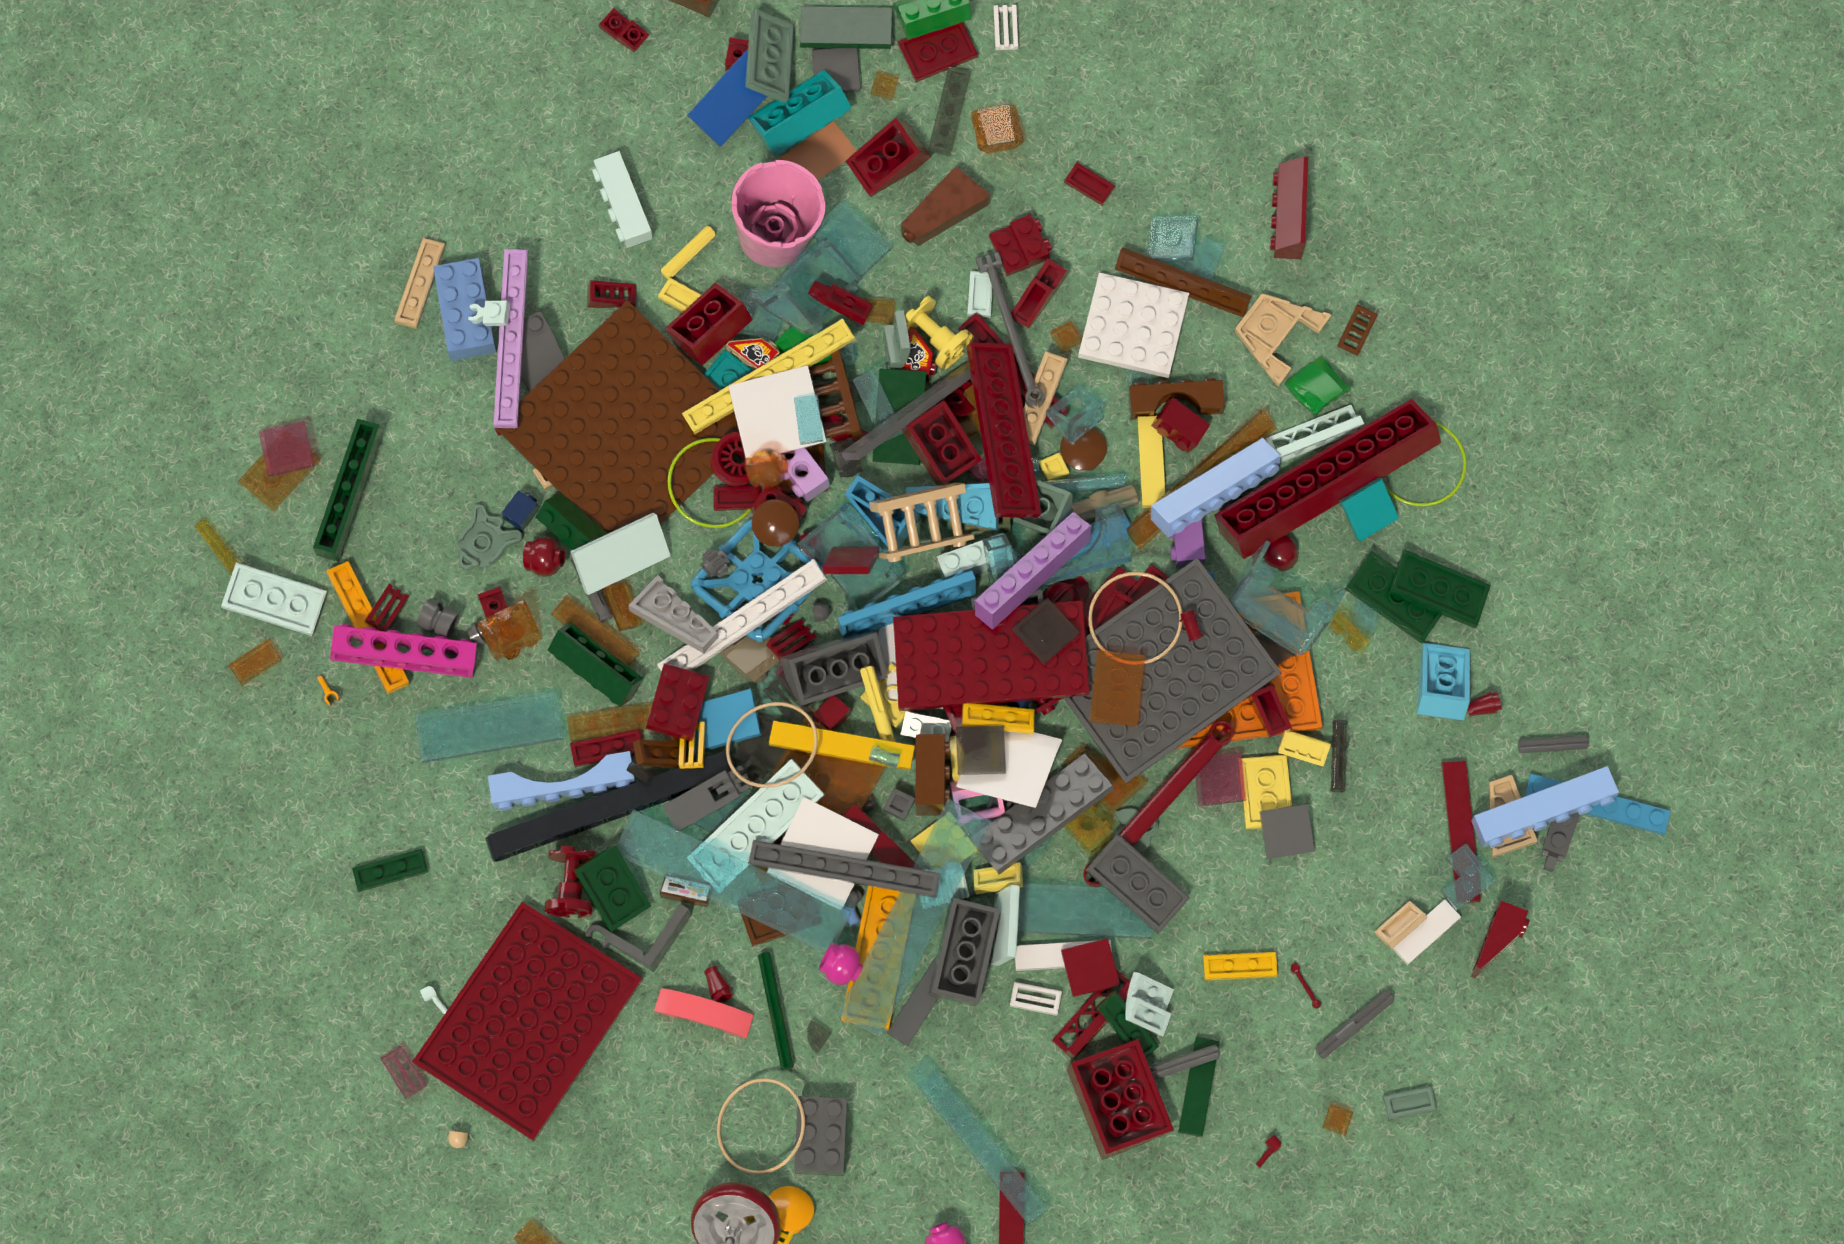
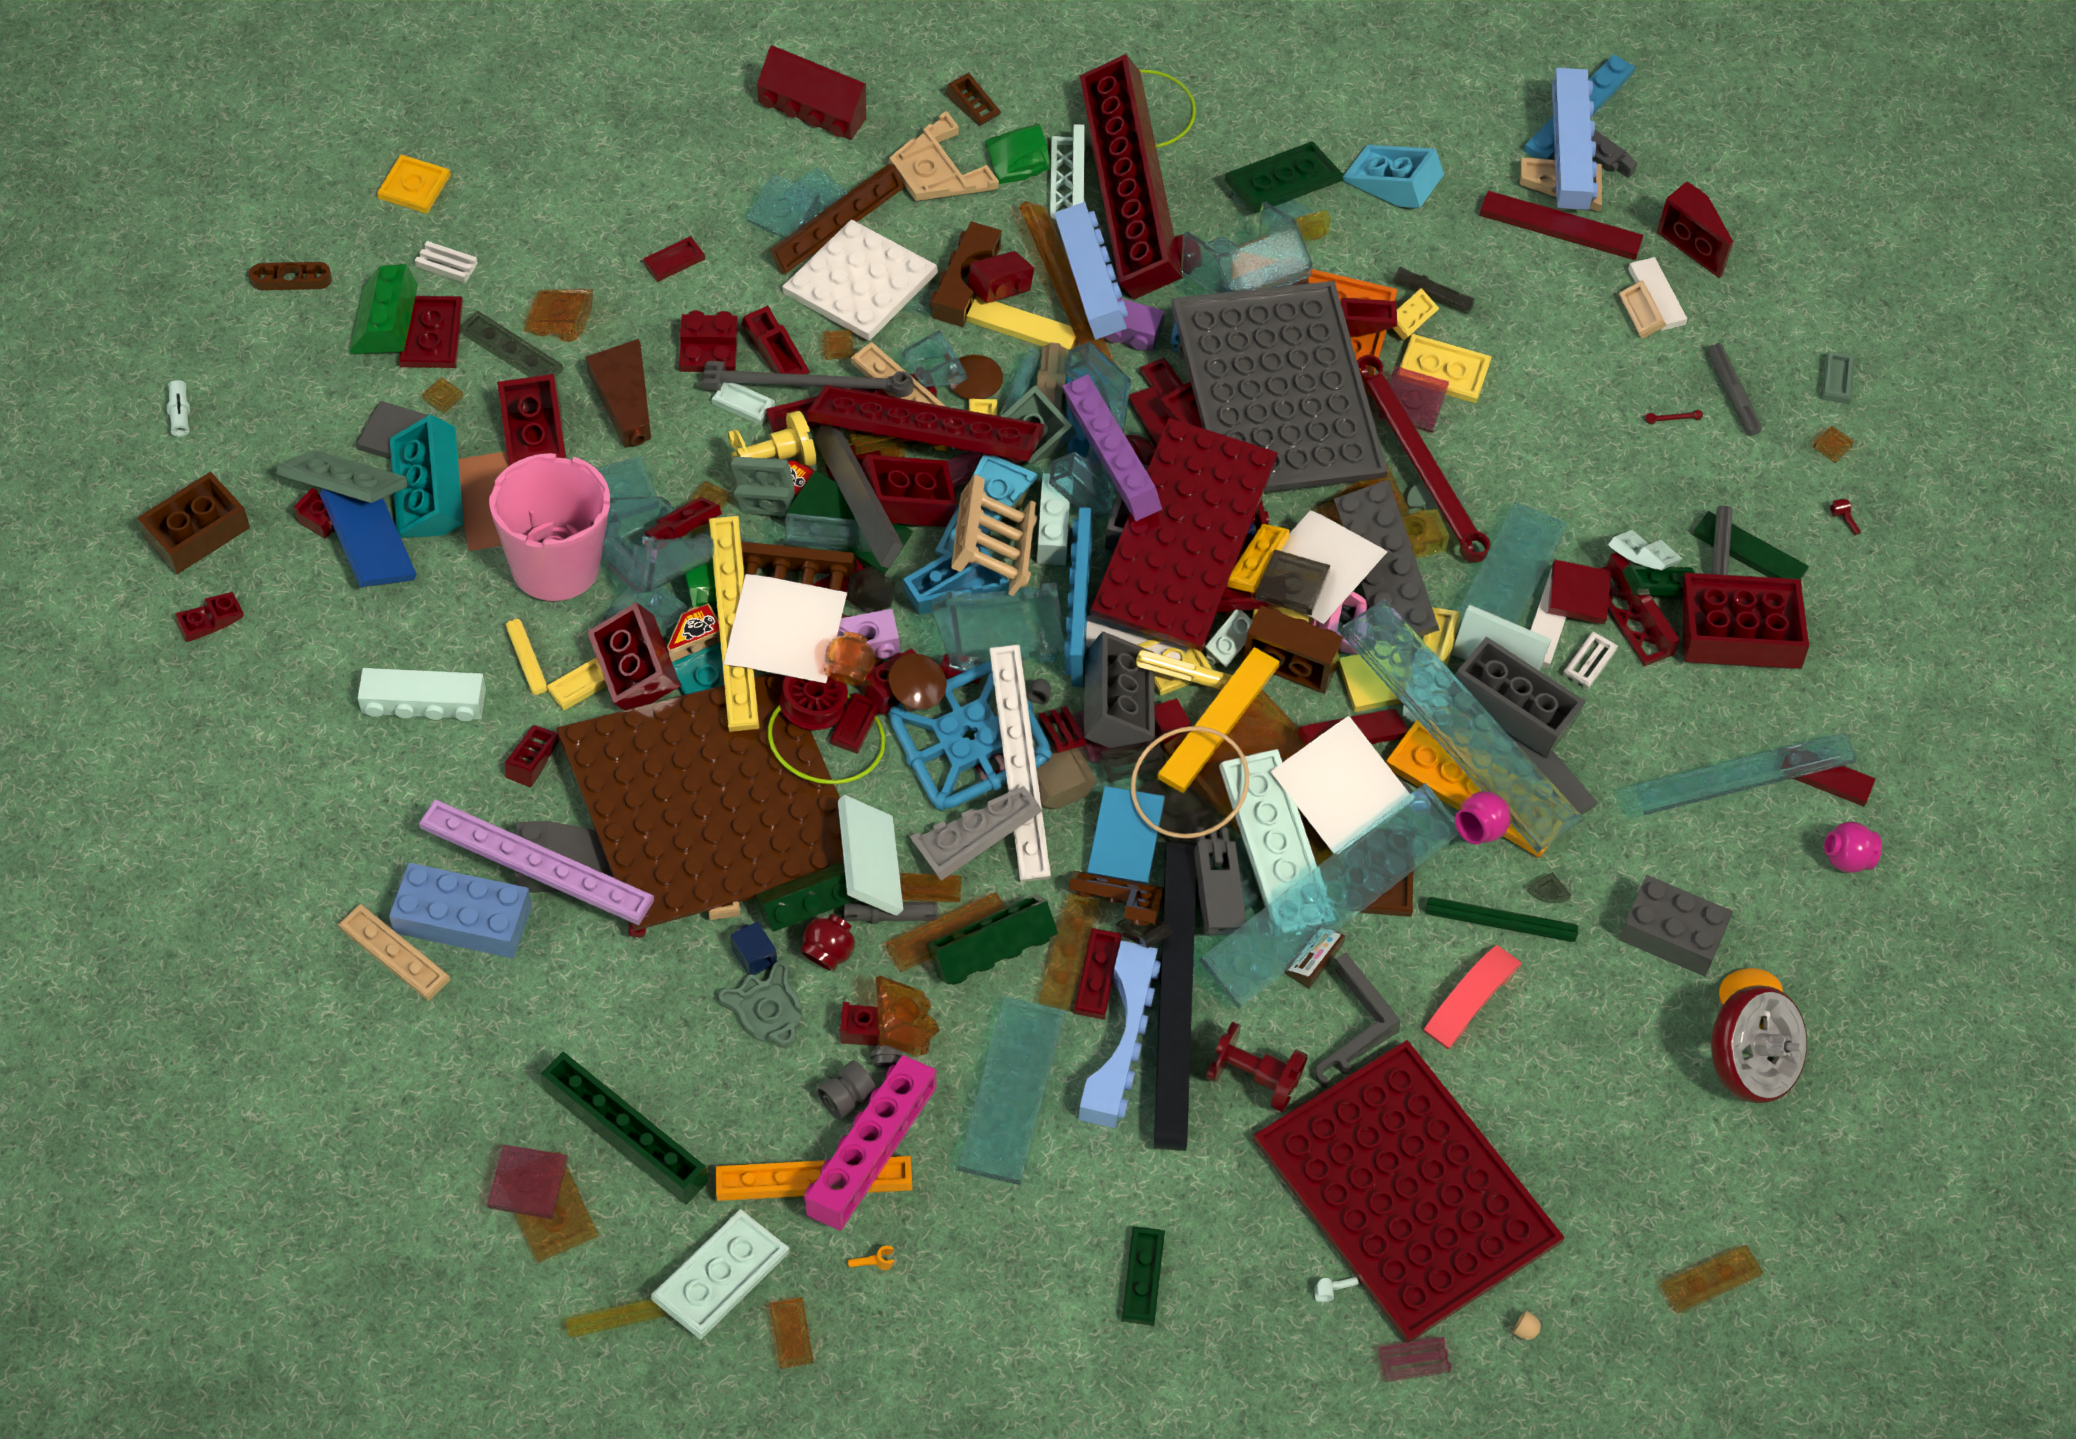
camera: 70 degrees left, 15 degrees down
(395, 594) = (807, 1142): dark red tile -> none
(493, 314) = (496, 863): light aqua plate -> none
(612, 888) = (1283, 1024): dark green plate -> none
(677, 702) = (1086, 865): dark red plate -> none
(682, 749) = (1127, 856): yellow tile -> none
(715, 562) = (932, 763): dark grey gear -> none
(718, 986) = (1447, 964): dark red cone -> none
(723, 1109) = (1642, 1039): tan piece -> none
(808, 419) = (813, 596): clear light blue tile -> none
(845, 869) = (1375, 765): dark grey tile -> none
(846, 27) = (350, 401): tile -> none
(850, 560) = (1006, 618): dark red tile -> none
(884, 757) = (1253, 681): clear light blue pin -> none
(899, 804) = (1310, 697): dark grey tile -> none
(1045, 631) = (1189, 461): clear smoke tile -> none
(1117, 688) = (1282, 428): clear orange tile -> none
(1137, 884) = (1504, 508): dark grey tile -> none
(1139, 574) = (1216, 427): tan piece -> none
(1191, 625) = (1247, 331): dark red pin -> none
(1240, 966) = (1628, 464): yellow tile -> none
(1286, 831) = (1498, 363): dark grey tile -> none
(1369, 509) = (1179, 159): teal tile -> none
(1439, 588) = (1293, 138): dark green tile -> none
(1472, 880) = (1619, 228): clear light blue tile -> none
(1485, 704) = (1437, 141): dark red cone -> none
(1553, 744) = (1500, 117): dark grey axle -> none

